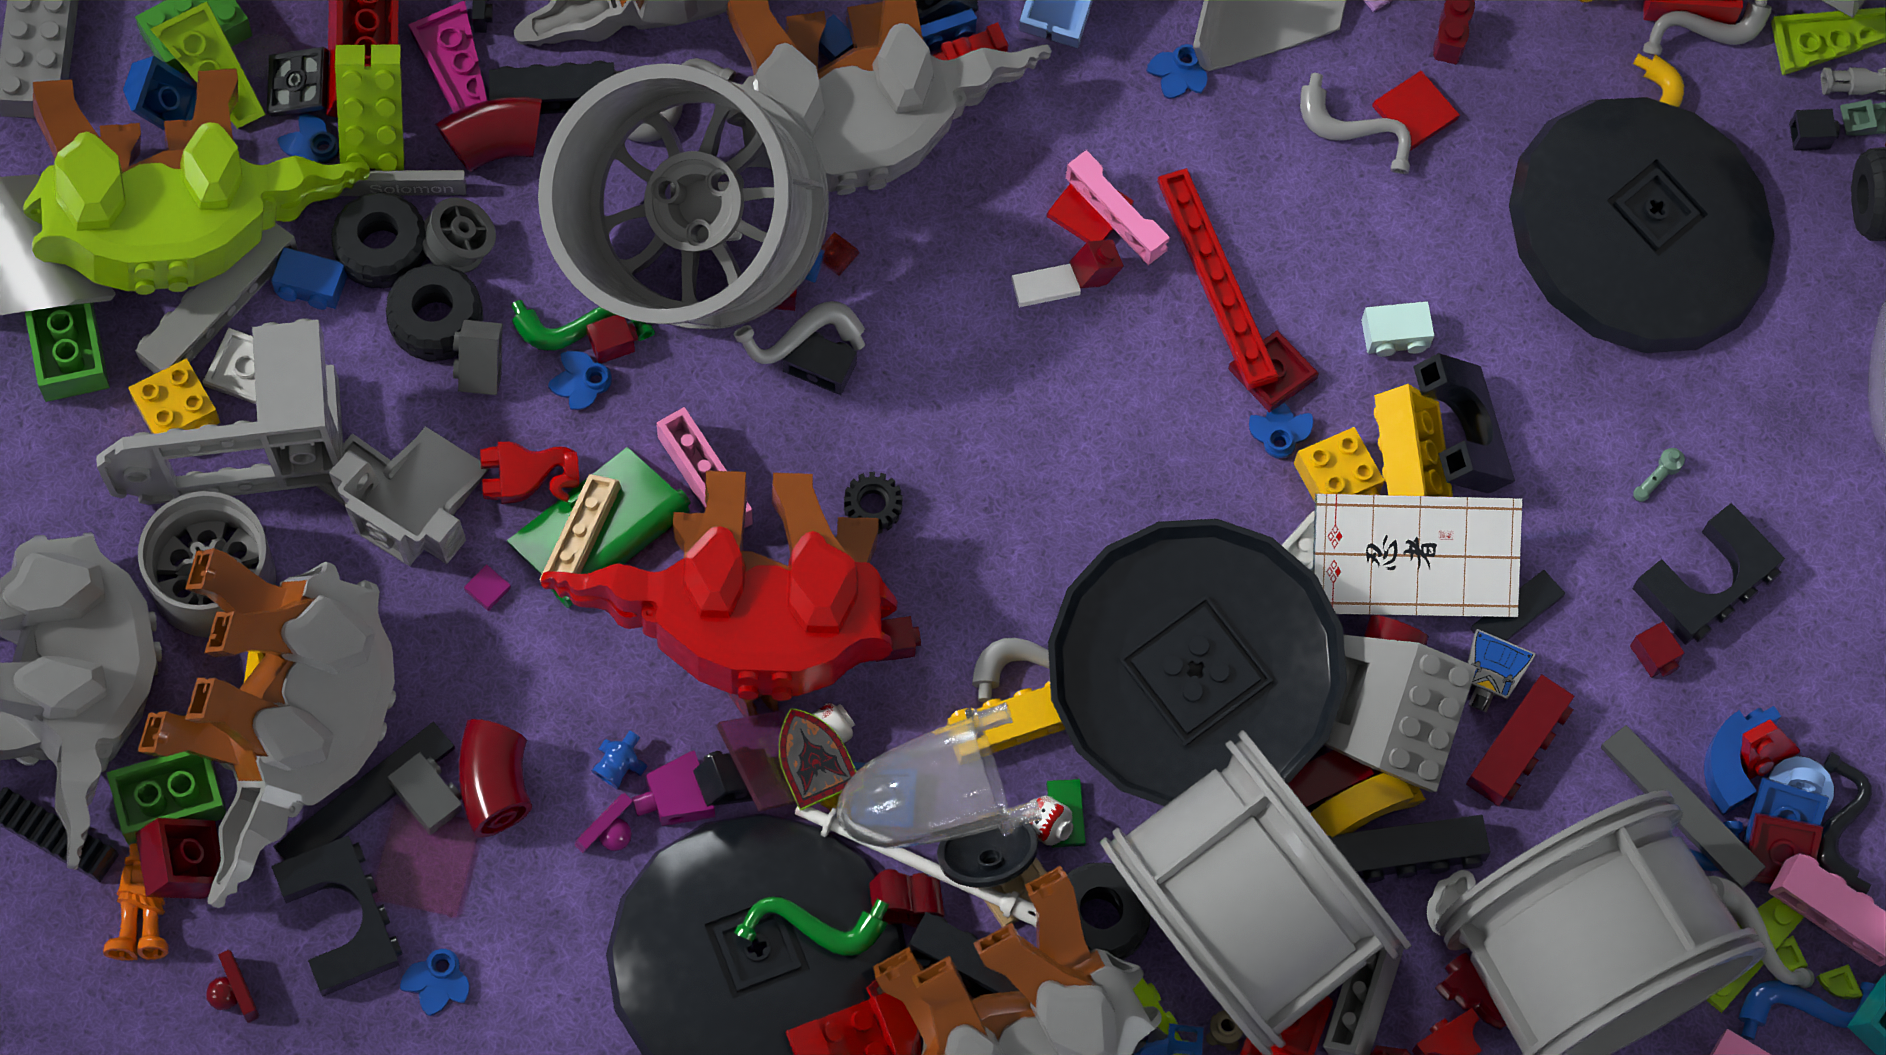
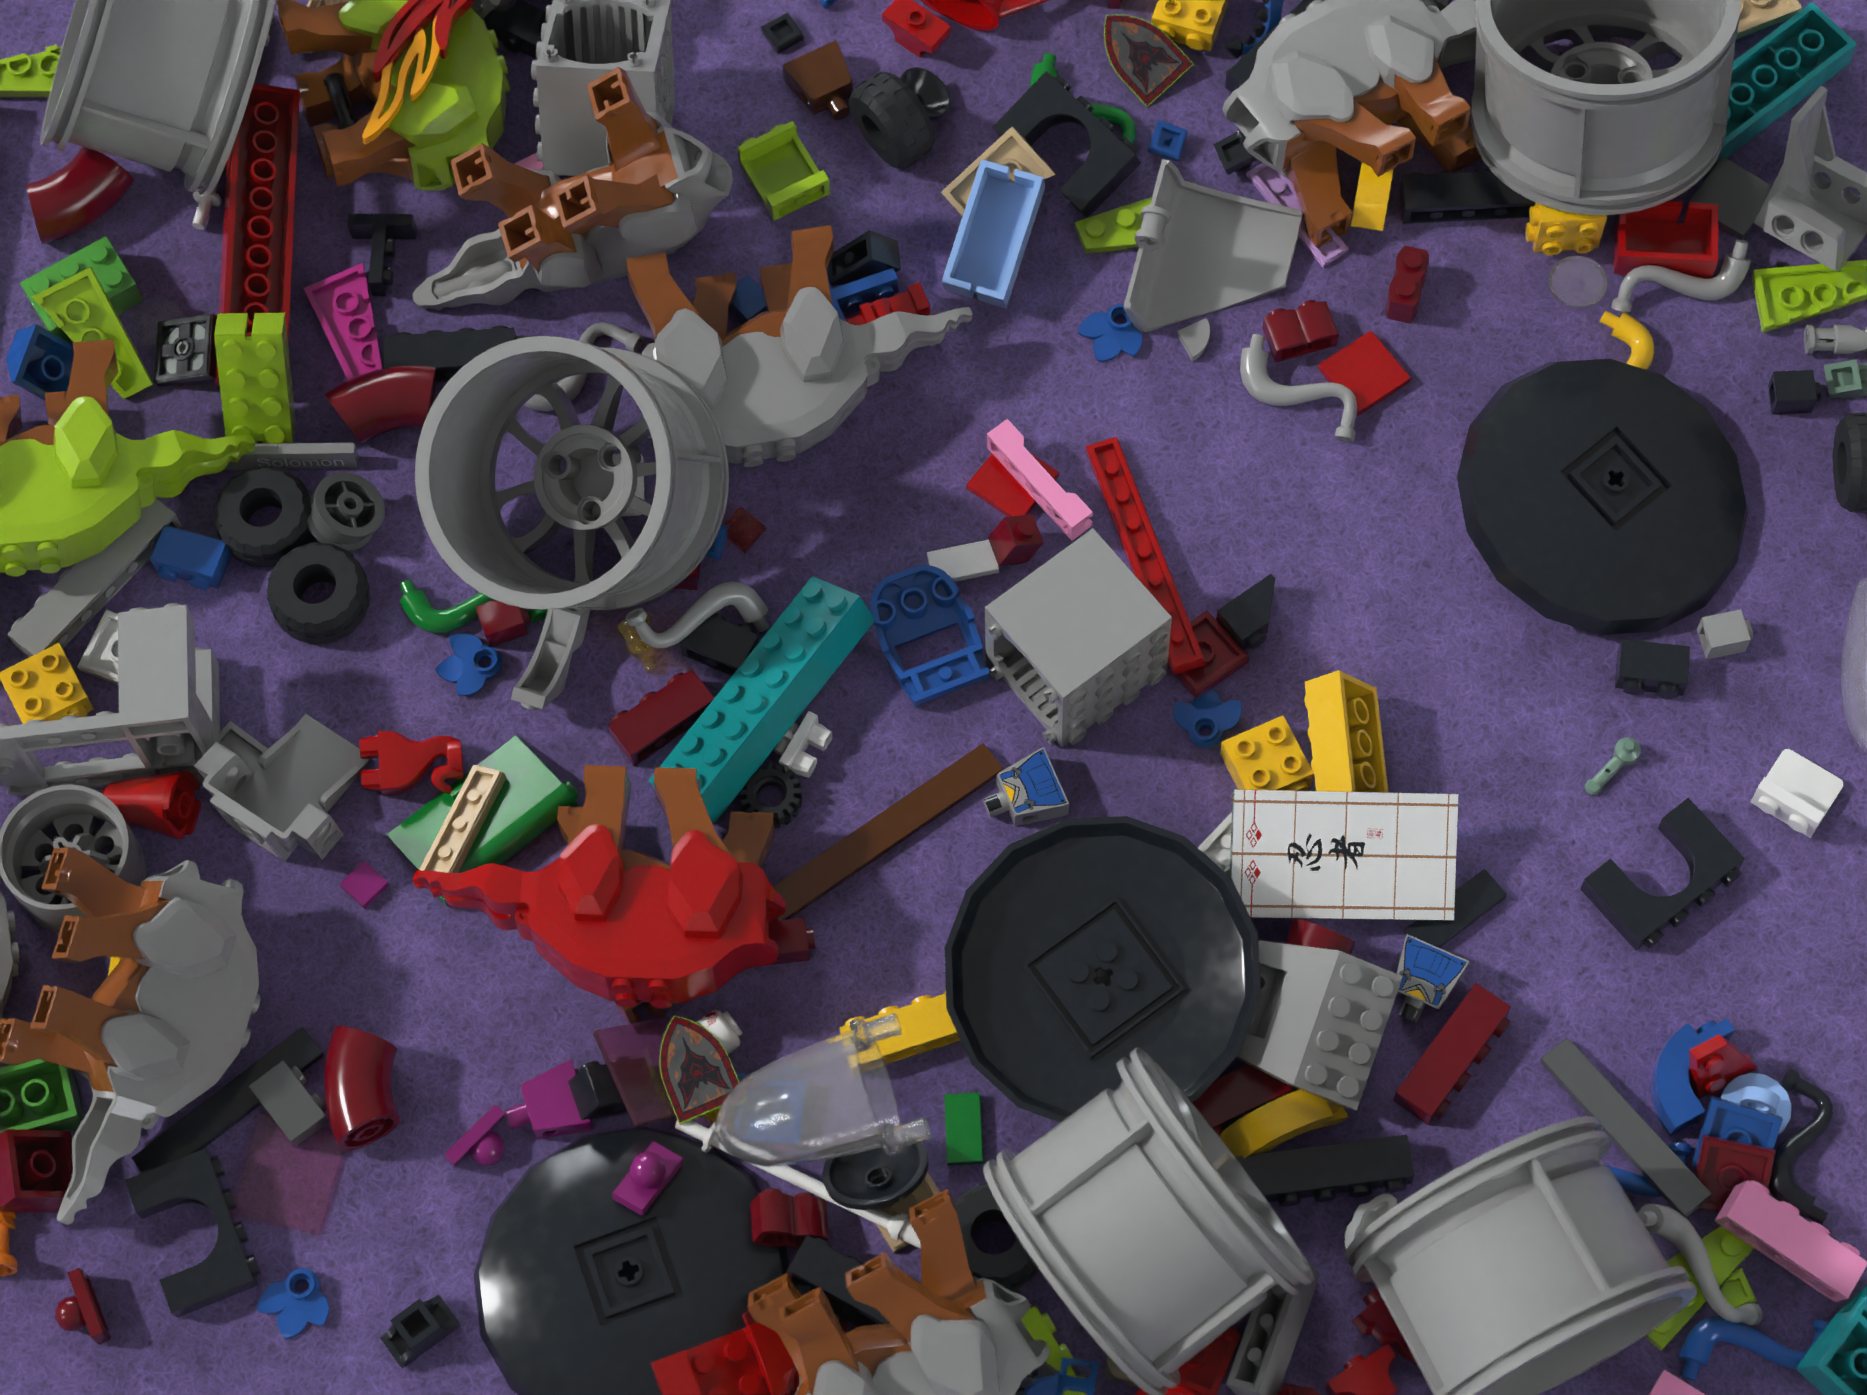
camera: 10 degrees right, 0 degrees up
(289, 509) = (158, 802): none -> red cone
(308, 139) = (192, 415): blue plate -> none
(479, 357) = (361, 641): dark grey brick -> none
(557, 1005) = (419, 1329): none -> black brick
(618, 759) = (493, 1068): blue piece -> none
(661, 371) = (550, 663): none -> light grey arch
(691, 453) = (583, 744): bright pink brick -> none
(741, 361) = (637, 646): none -> clear yellow piece
(767, 428) = (660, 716): none -> dark red brick
(772, 860) = (647, 1178): none -> magenta tile
(849, 943) = (718, 1268): green animal -> none
(871, 402) = (770, 691): none -> teal brick
(907, 444) = (808, 733): none -> white hips
(987, 533) = (887, 830): none -> reddish brown tile
(997, 655) = (895, 960): light grey animal -> none
(1005, 325) = (918, 605): none -> blue slope
(1055, 821) = (946, 1137): white head -> none
(1117, 498) = (1028, 791): none -> torso
(1162, 354) = (1077, 638): none -> light grey piece
(1256, 77) = (1195, 338): none -> light grey tile
(1317, 333) = (1249, 614): none -> black slope
(1355, 70) = (1300, 330): none -> dark red brick
(1397, 328) = (1335, 608): light aqua brick -> none
(1482, 459) = (1403, 672): black arch -> none
(1611, 26) = (1578, 281): none -> clear piece
(1657, 650) = (1604, 957): dark red brick -> none
(1692, 384) = (1652, 668): none -> black brick
(1758, 352) = (1724, 634): none -> light grey brick
(1830, 498) = (1797, 792): none -> white bracket
(1840, 982) = (1792, 1320): lime tile -> none

